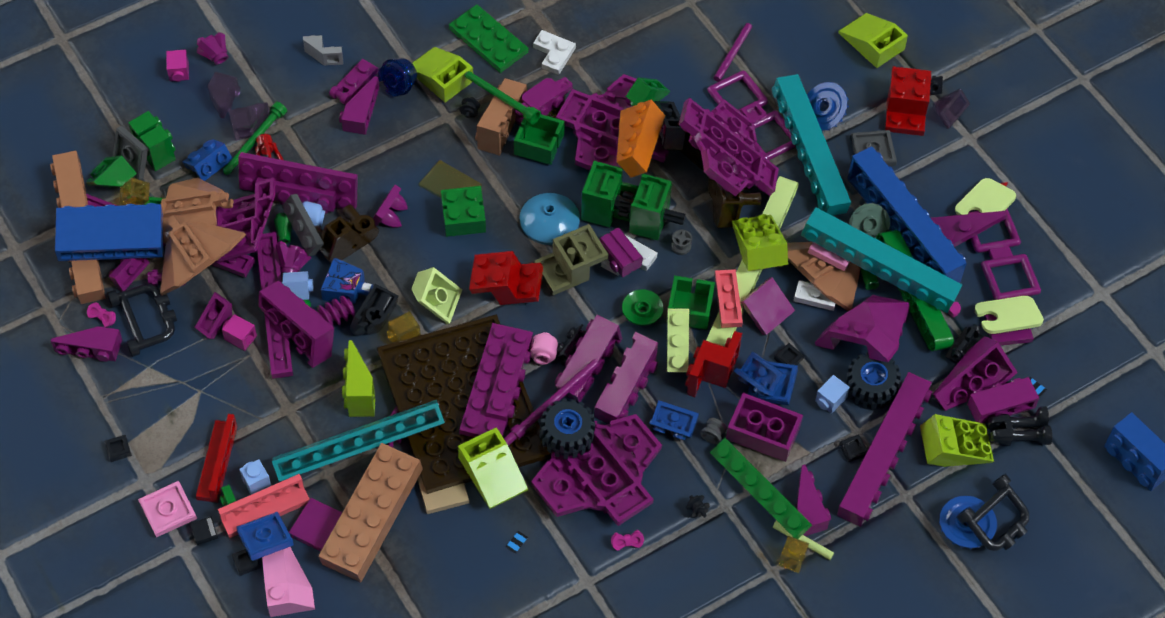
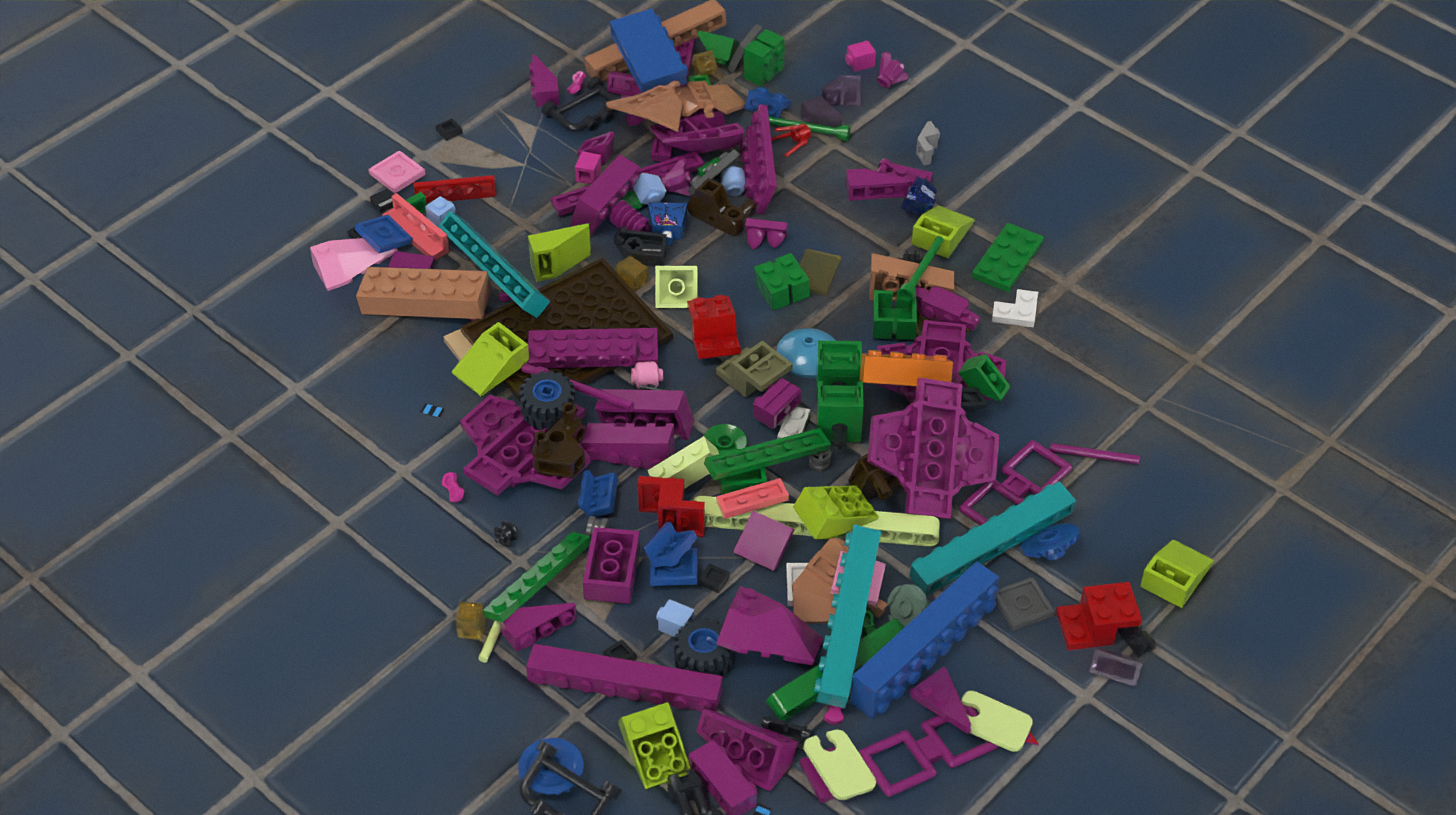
camera: 75 degrees right, 10 degrees down
(630, 434) = (559, 449): none -> dark brown piece
(690, 271) = (766, 454): none -> green plate

